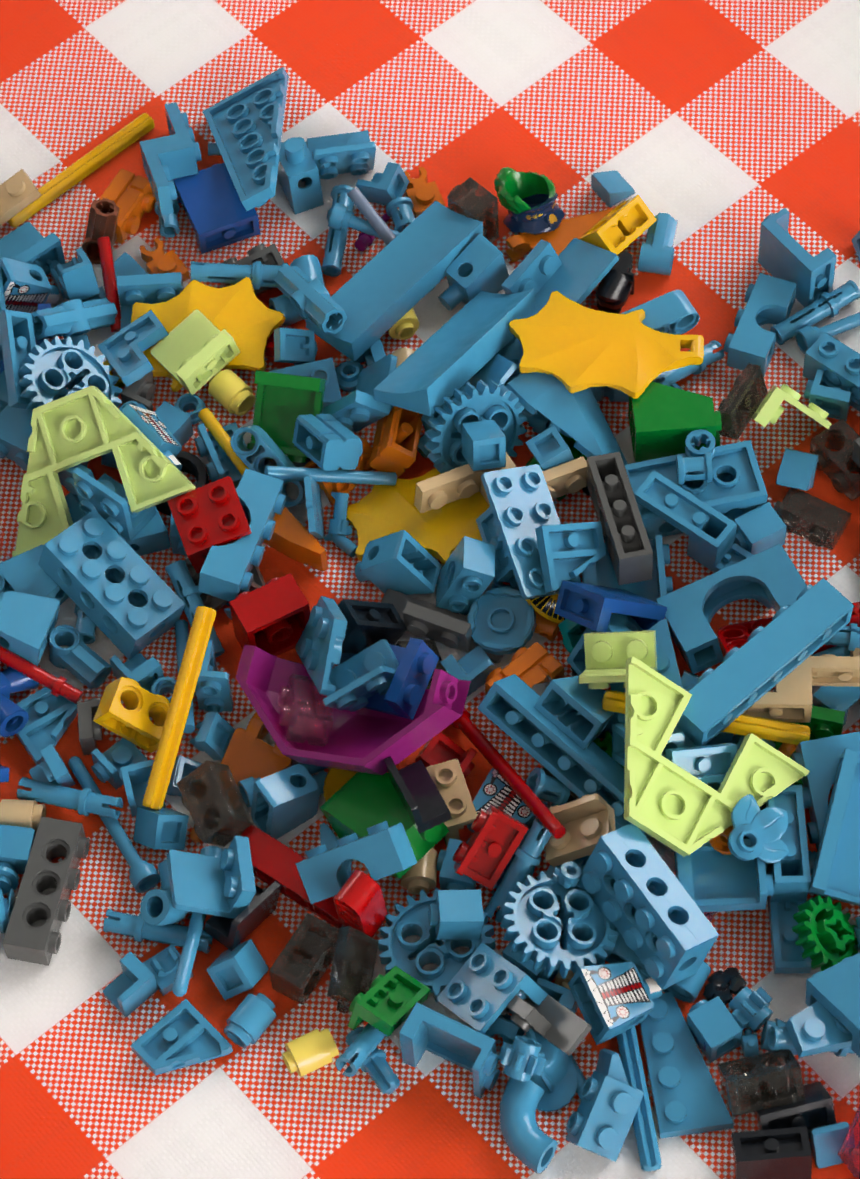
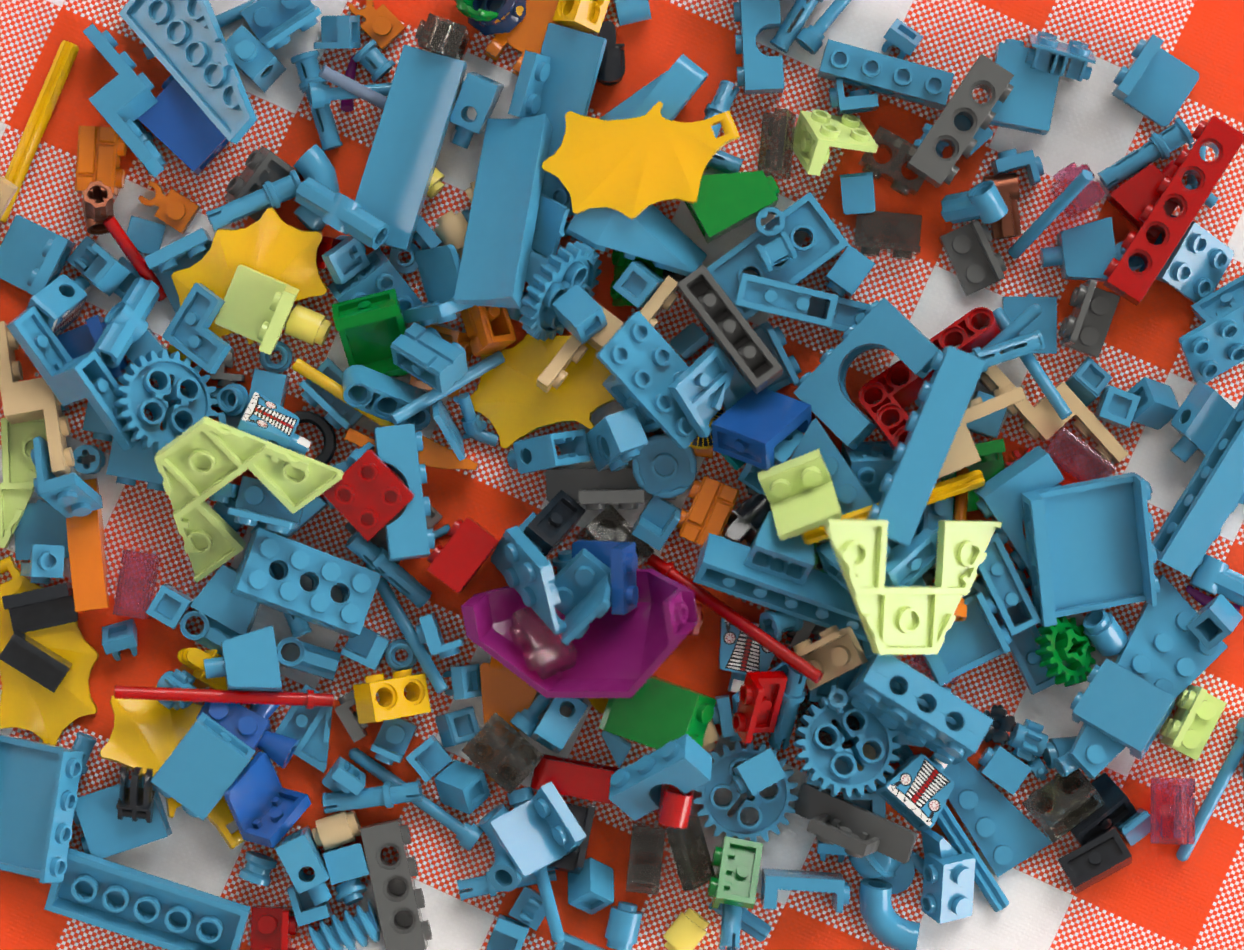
camera: 30 degrees left, 30 degrees up
(179, 708) = (434, 689): yellow axle -> none
(418, 795) = (684, 693): black panel -> none
(455, 793) = (702, 661): tan bracket -> none
(486, 988) = (814, 828): dark azure bracket -> none
(522, 1058) = (870, 881): dark azure gear -> none
(761, 827) = (982, 598): dark azure plate -> none

